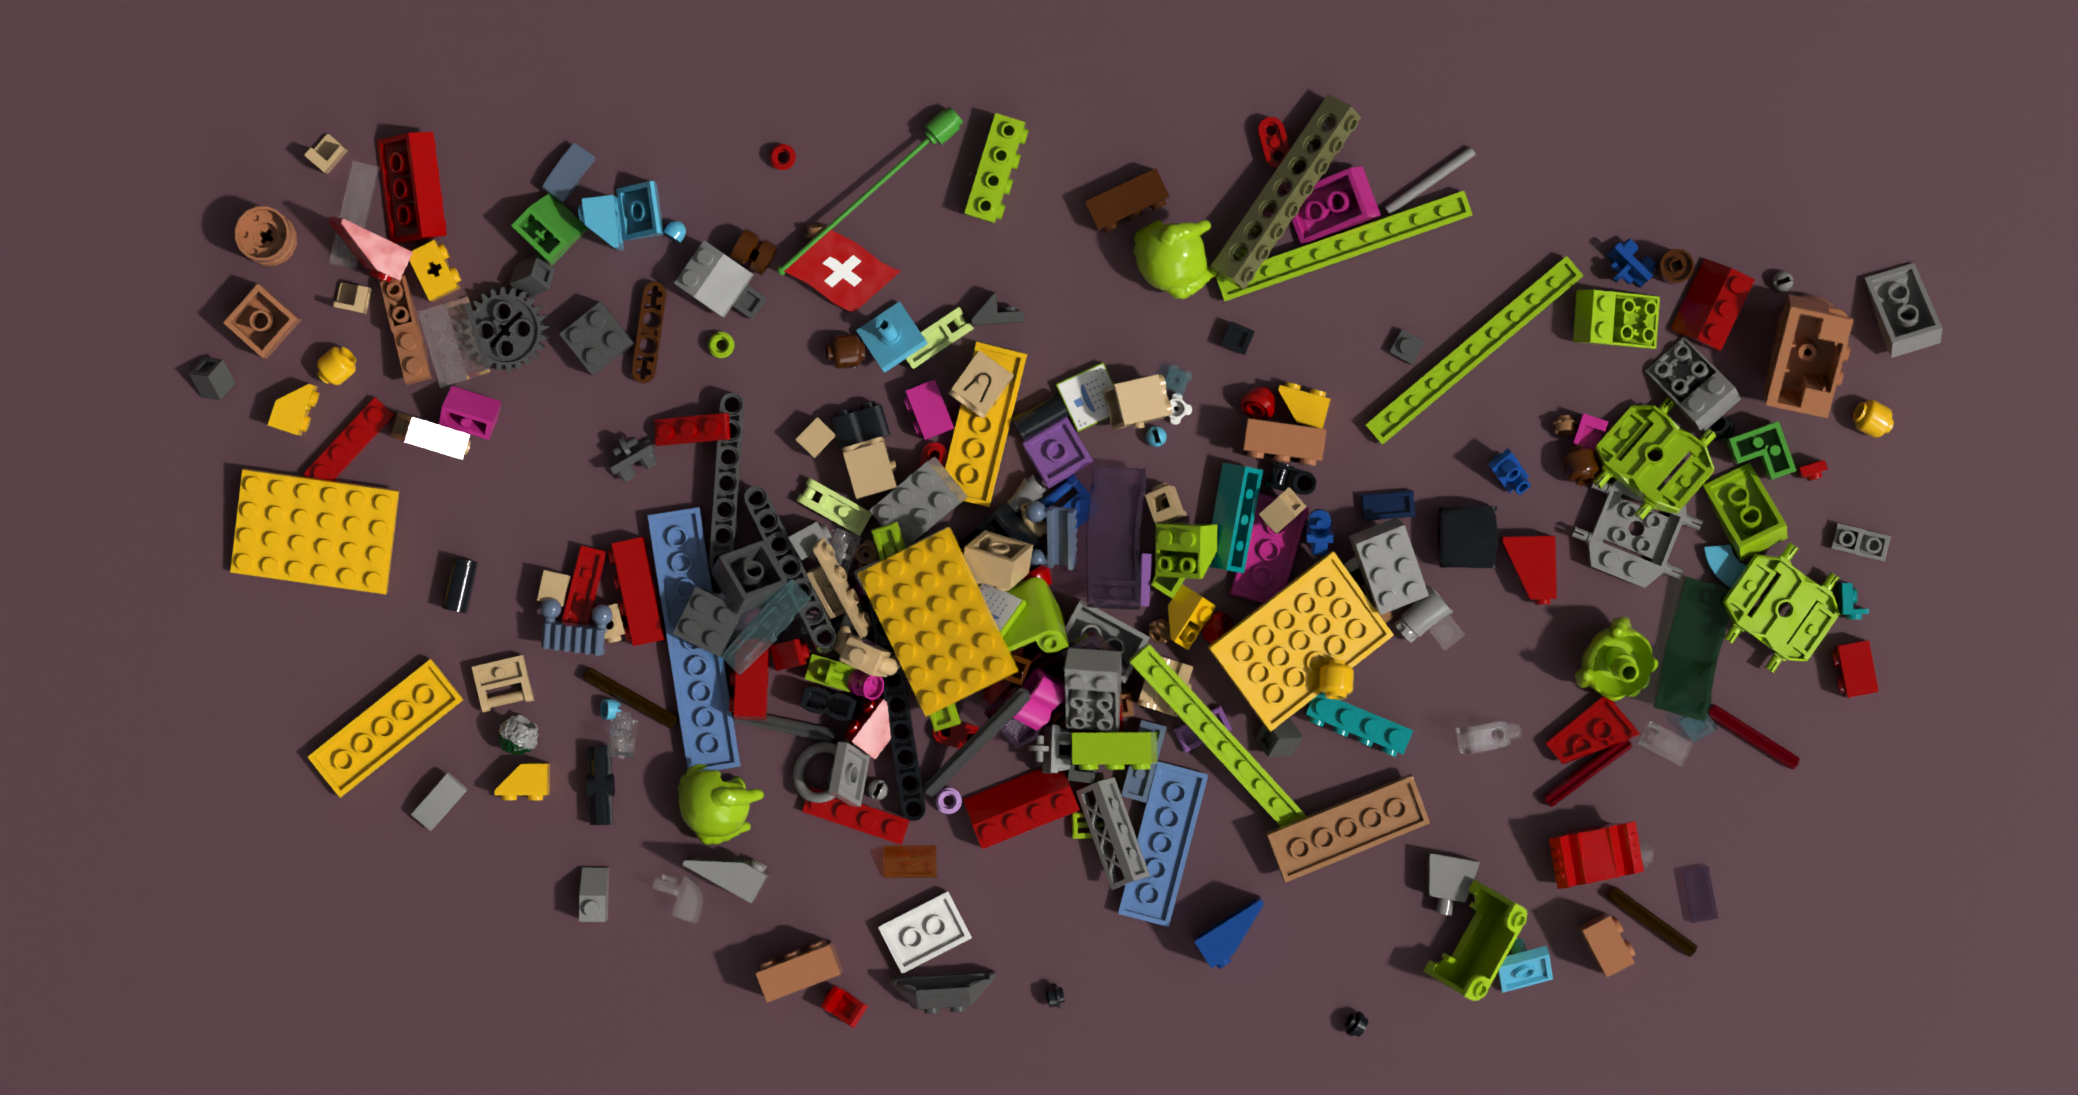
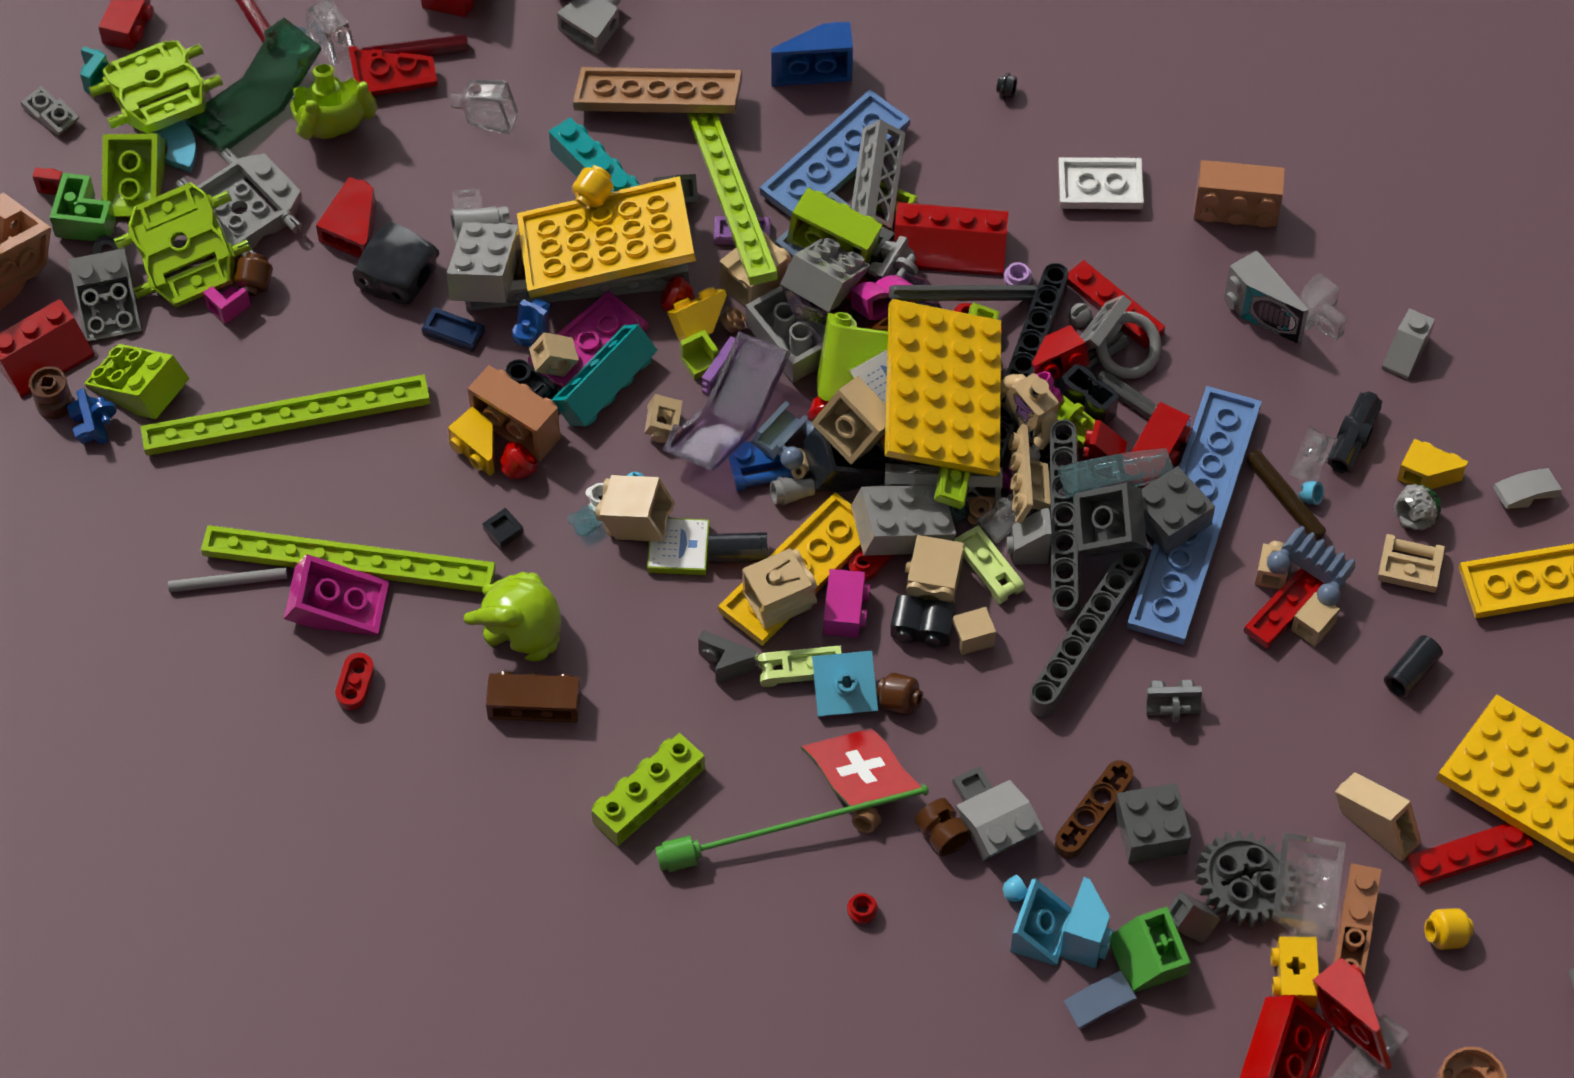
camera: 155 degrees left, 30 degrees down
(262, 321) = (1511, 1006): nougat brick -> none
(292, 410) = (1517, 909): yellow slope -> none
(353, 298) = (1400, 988): tan panel -> none
(470, 412) = (1323, 812): dark pink brick -> none
(637, 590) = (1229, 579): red brick -> none
(692, 429) = (1097, 691): red plate -> none
(712, 345) = (1028, 755): lime plate -> none
(715, 807) = (1253, 357): lime piece -> none
(844, 1005) = (1208, 150): red bracket -> none
(910, 861) = (1081, 246): clear orange slope -> none
(943, 990) = (1105, 129): dark grey wedge -> none
(1057, 452) = (740, 507): medium lavender tile -> none
(1184, 549) = (666, 363): lime slope -> none
(1274, 197) = (469, 581): olive brick -> none
(1407, 346) = (347, 449): dark grey plate -> none
(1510, 472) = (322, 300): blue hips -> none
(1565, 425) = (245, 316): medium nougat plate -> none

